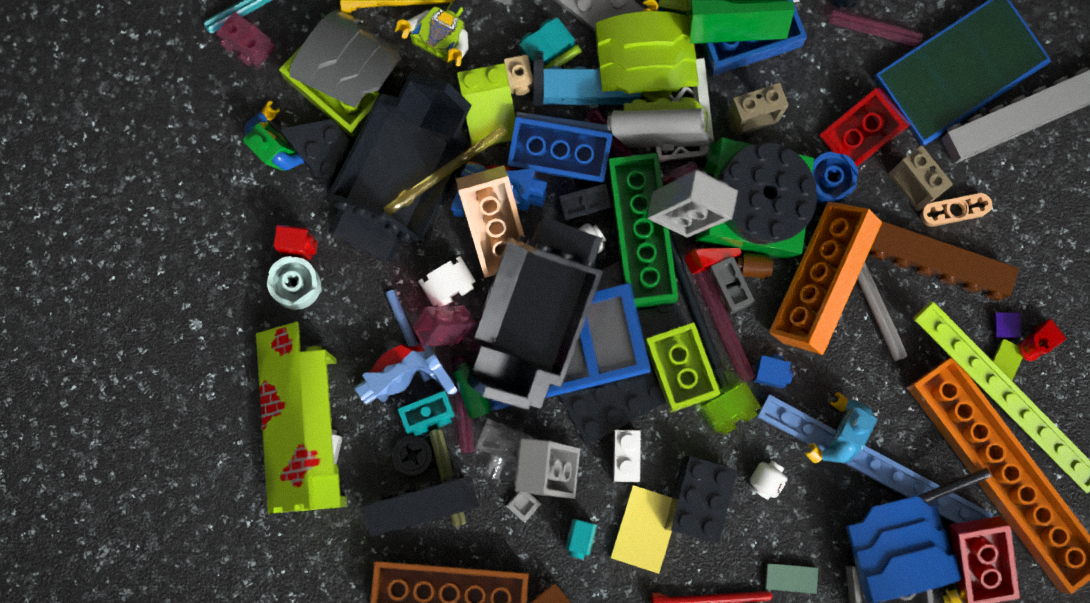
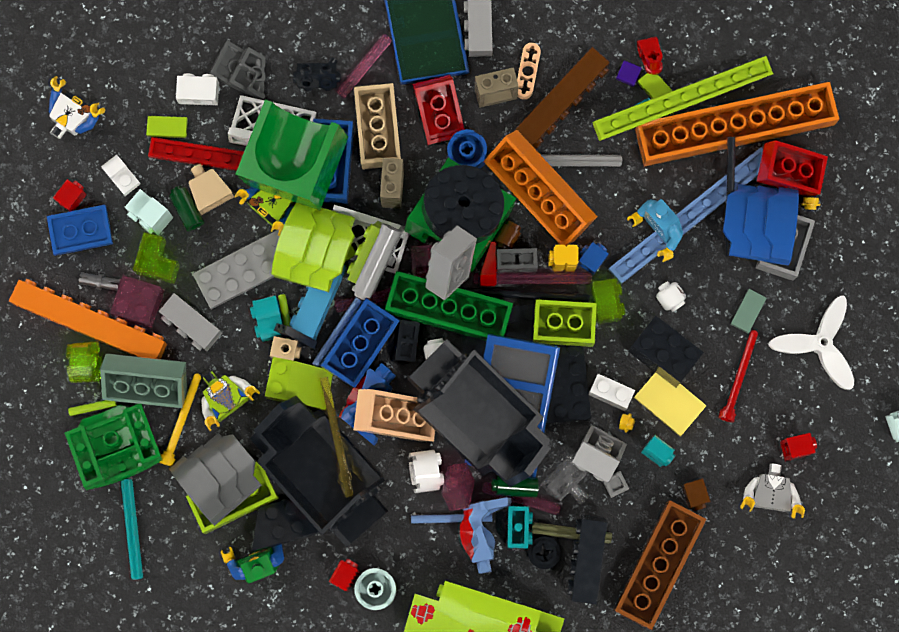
camera: 65 degrees left, 0 degrees up
(245, 40) = (163, 551): clear pink brick -> none
(599, 488) = (626, 422): none -> yellow plate
(757, 337) = (563, 258): none -> yellow brick
(817, 66) = (376, 124): none -> tan brick

